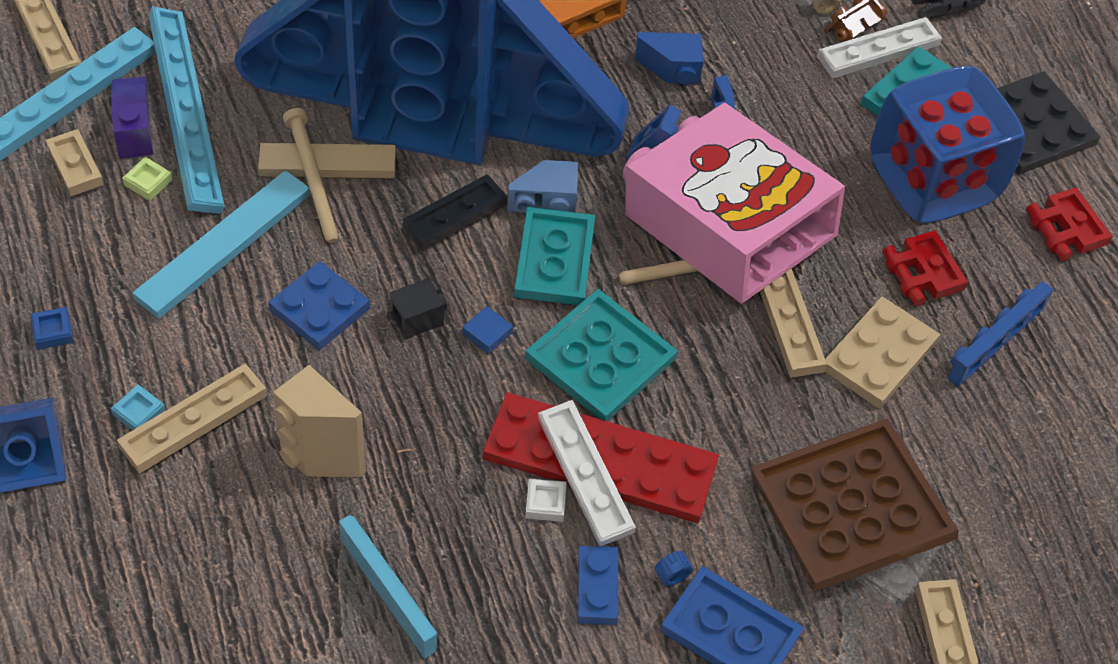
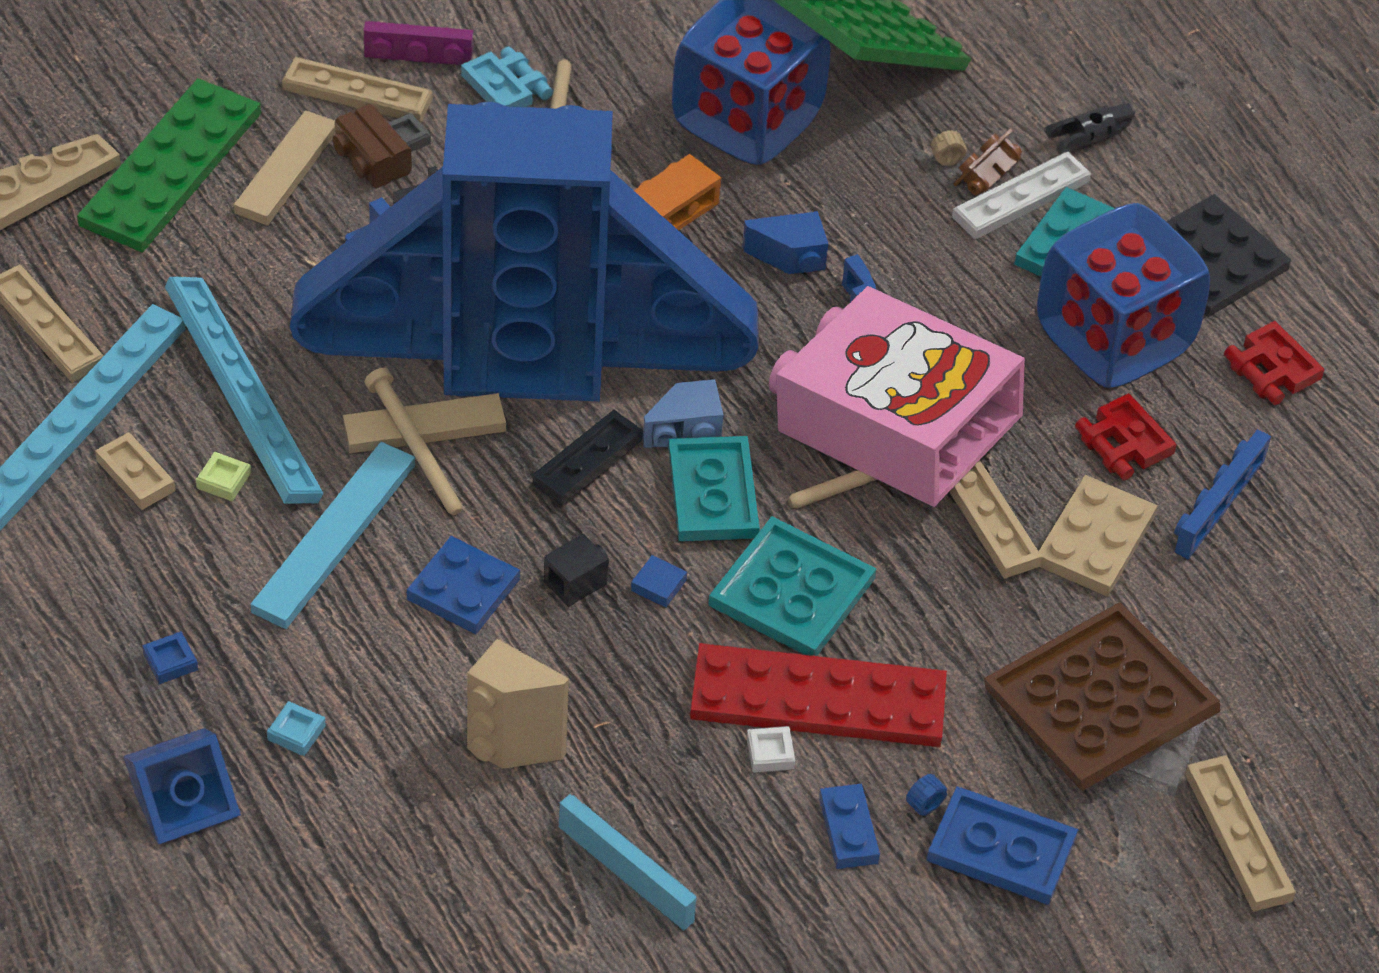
camera: 10 degrees left, 5 degrees down
(131, 117) = (184, 408): dark purple slope -> none
(191, 418) = (361, 726): tan plate -> none
(586, 473) = (810, 711): white tile -> none
(656, 131) = (793, 332): blue plate -> none

